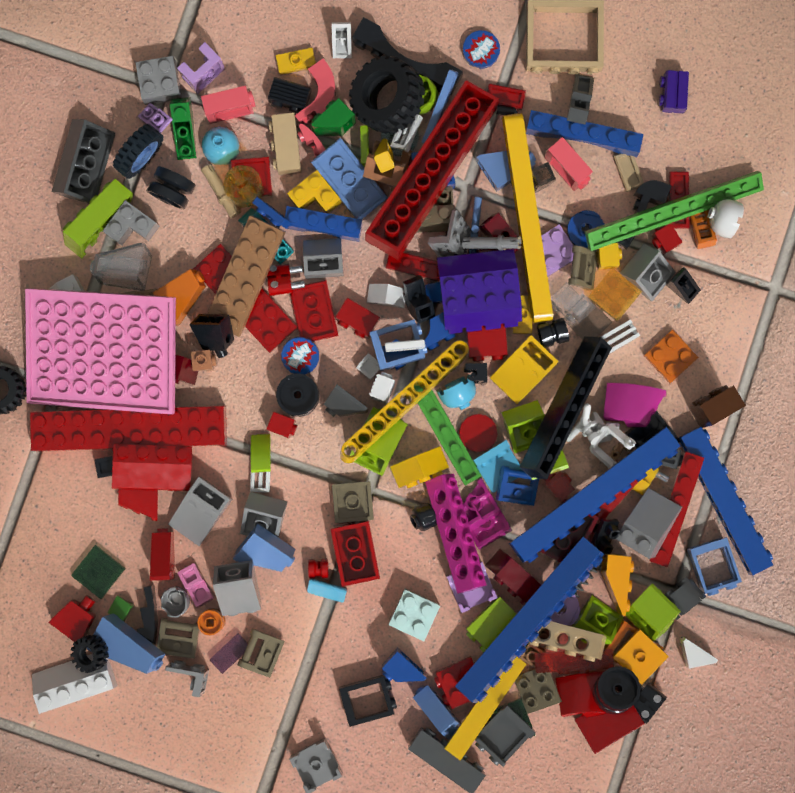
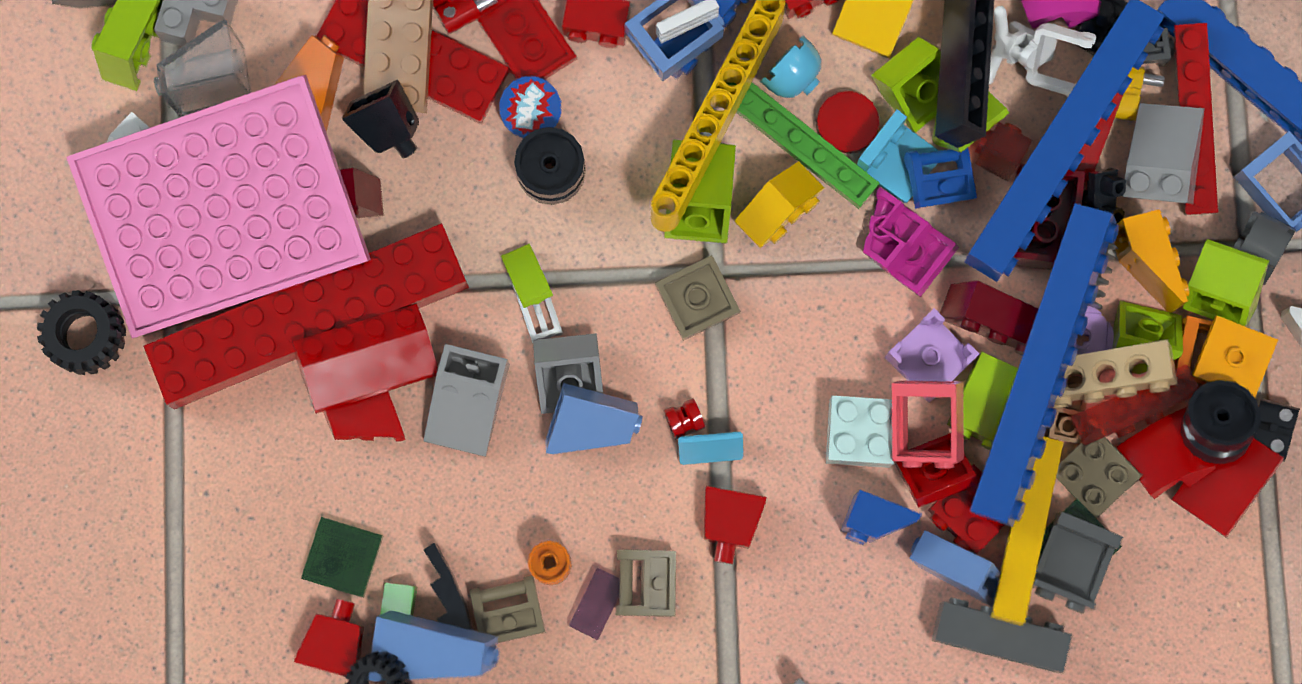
camera: 20 degrees left, 5 degrees down
(104, 466) = (291, 389): black plate -> none
(162, 555) = (433, 489): red slope -> none
(175, 601) = (480, 554): light grey hair -> none
(196, 585) = (503, 519): bright pink slope -> none
(199, 682) = (565, 665): light grey bracket -> none
(203, 360) = (384, 168): nougat bracket -> none
(236, 588) = (571, 494): light grey slope -> none
(282, 425) = (543, 221): red brick -> none
(322, 636) = (730, 520): none -> red torso
(343, 403) = (627, 150): dark grey slope -> none
(348, 706) = (815, 613): black window -> none
(355, 553) = (733, 371): red brick -> none
(368, 366) = (641, 85): white plate -> none
(382, 387) = (675, 105): white brick -> none
(423, 517) = (817, 277): black head -> none
(447, 653) = (931, 483): none -> red plate
(455, 533) = (860, 274): dark pink brick -> none
(459, 608) = (913, 458): none -> coral window
(479, 373) = (811, 25): black hinge -> none
(617, 450) = (1075, 56): medium nougat arm -> none

